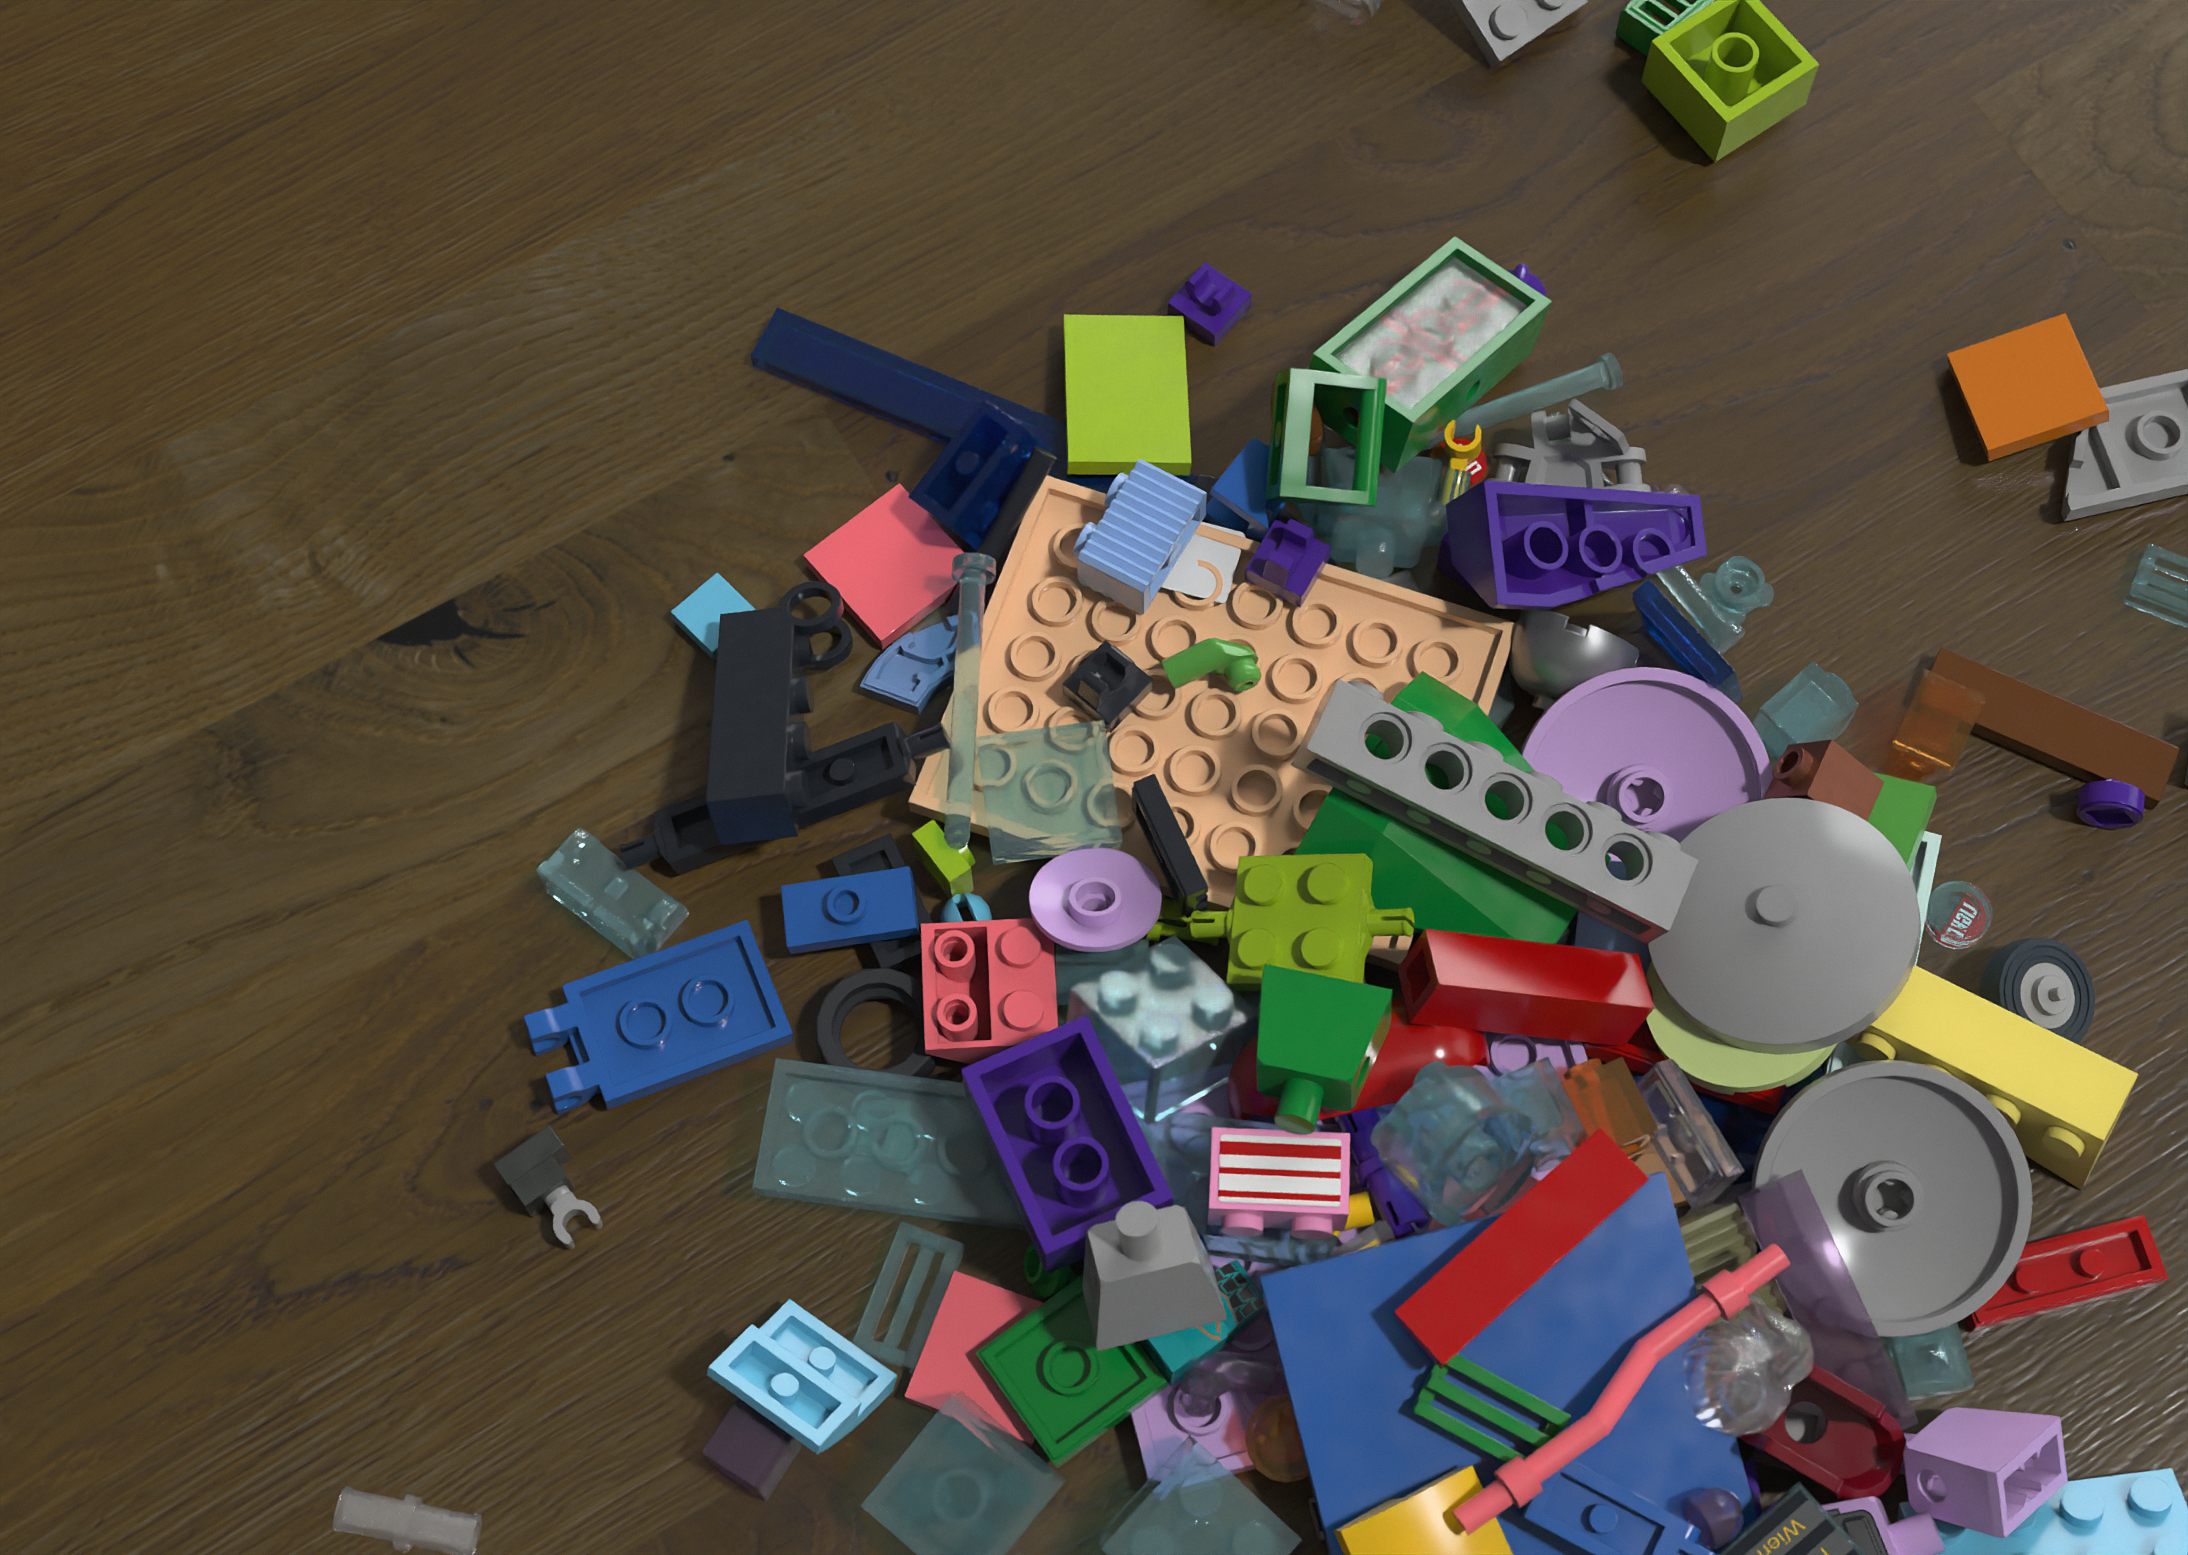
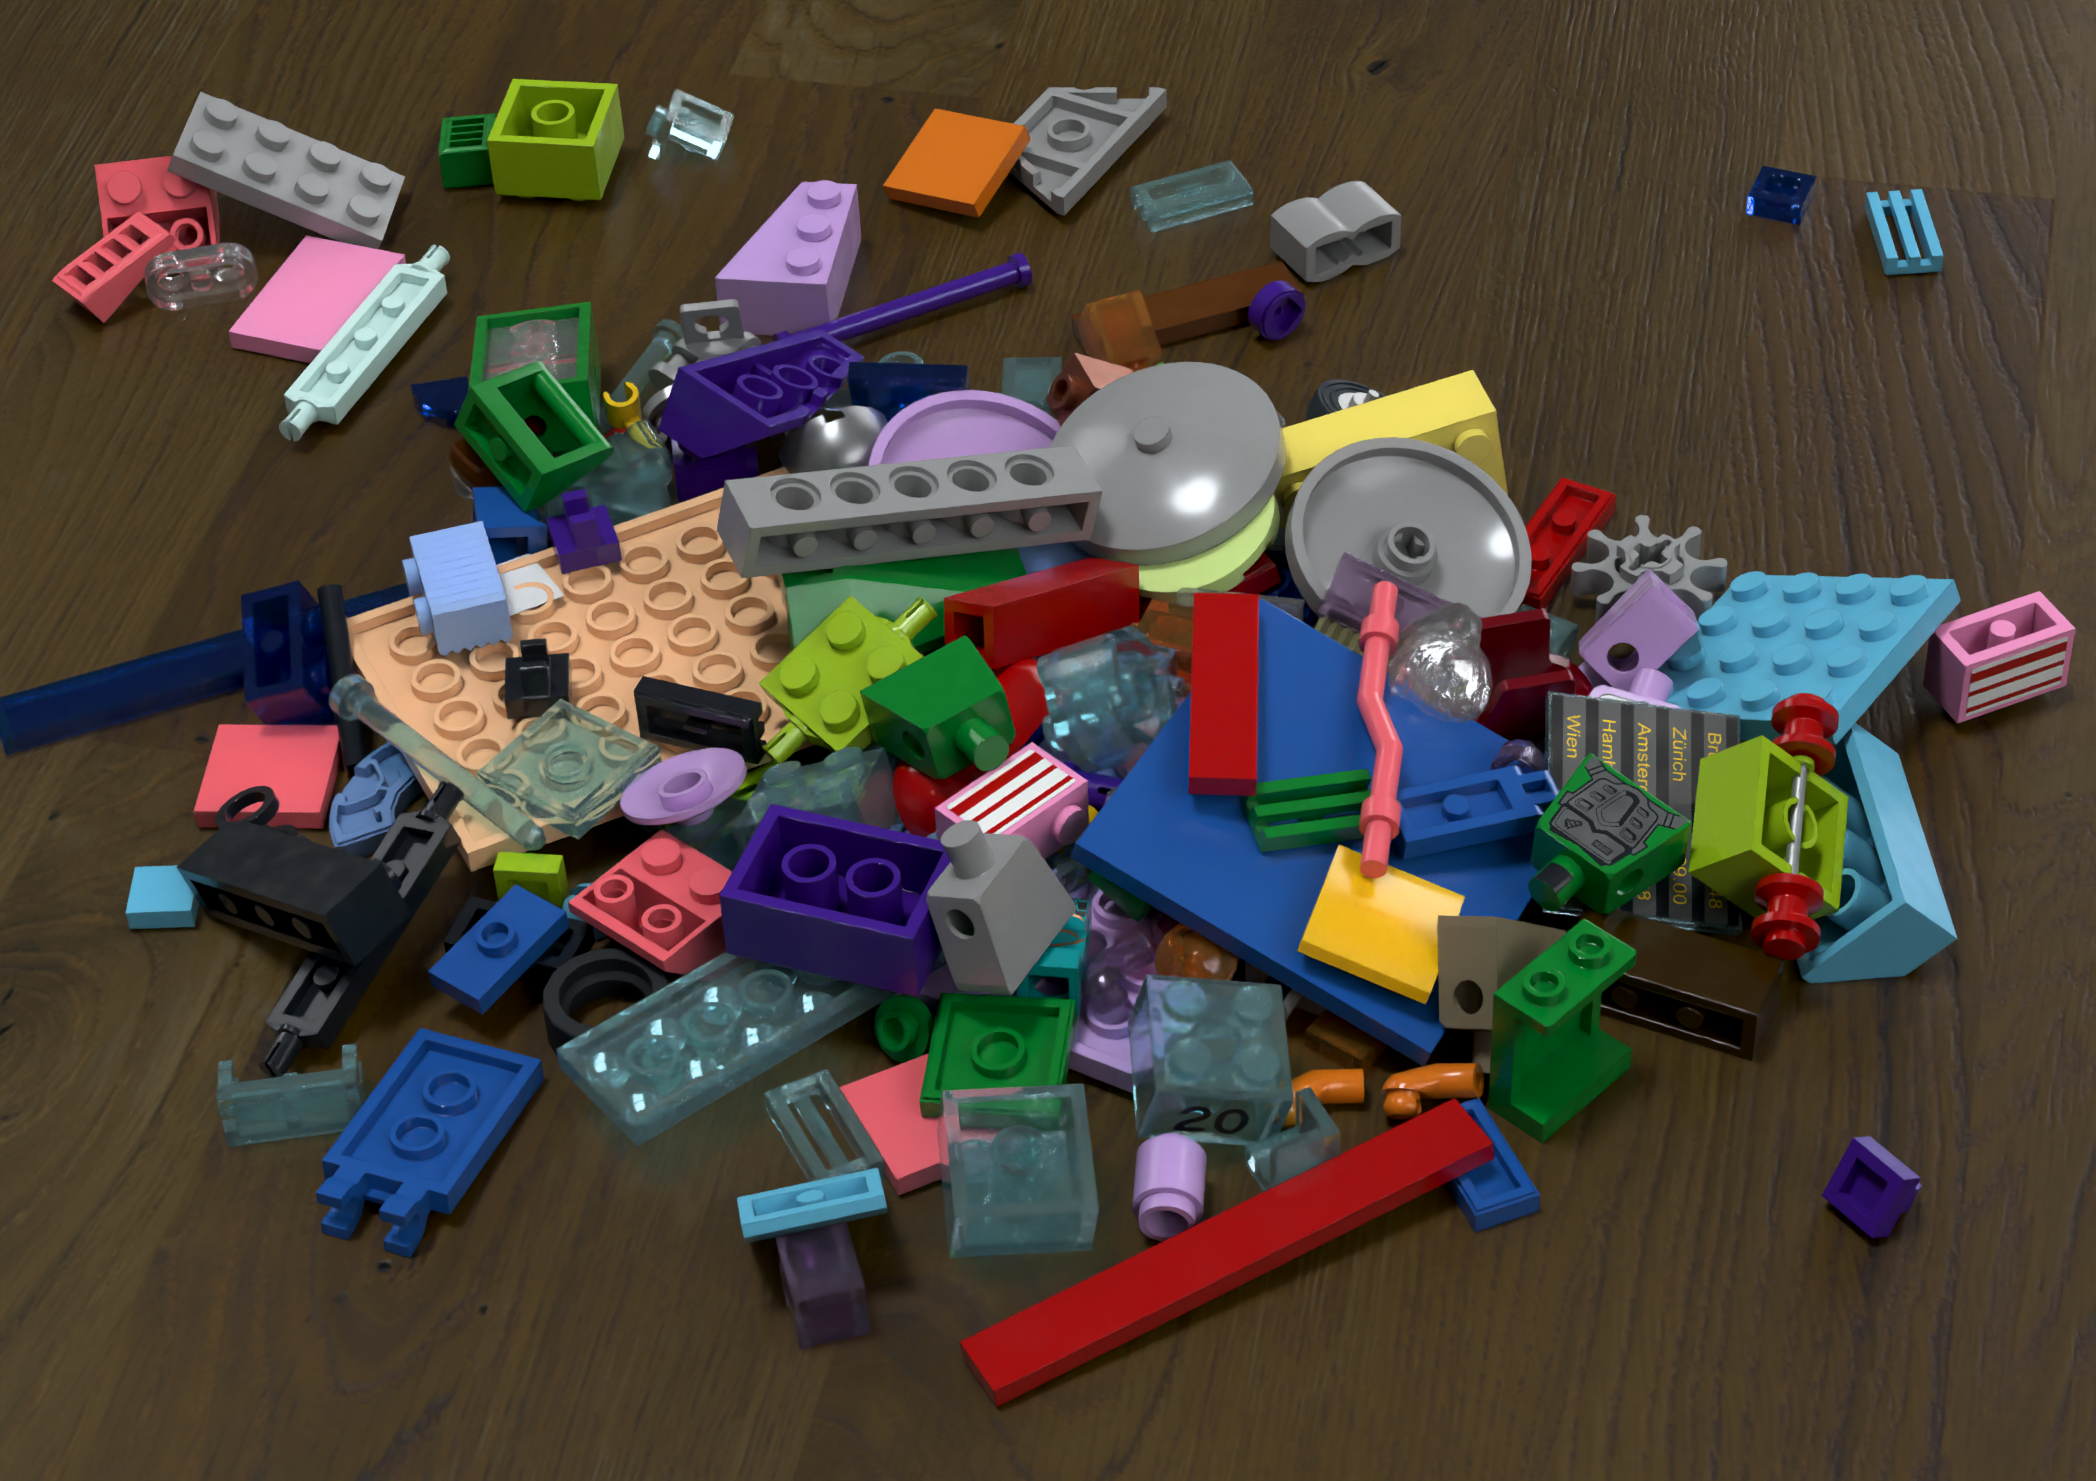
camera: 45 degrees left, 25 degrees down
(539, 1182) = (448, 1282): pearl dark grey piece -> none
(1125, 394) = (327, 549): lime tile -> none
(1210, 304) = (331, 487): dark purple tile -> none
(1216, 657) = (602, 611): bright green arm -> none
(1374, 277) = (441, 398): none -> clear blue tile
(1378, 169) = (365, 344): none -> light aqua plate
(1395, 84) = (311, 298): none -> bright pink tile
(1777, 389) = (797, 261): none -> lavender wedge
(1822, 511) = (1015, 271): none -> dark purple bar
(1860, 145) = (691, 123): none -> clear light blue bracket
(2102, 1377) = (1621, 563): none -> light grey gear

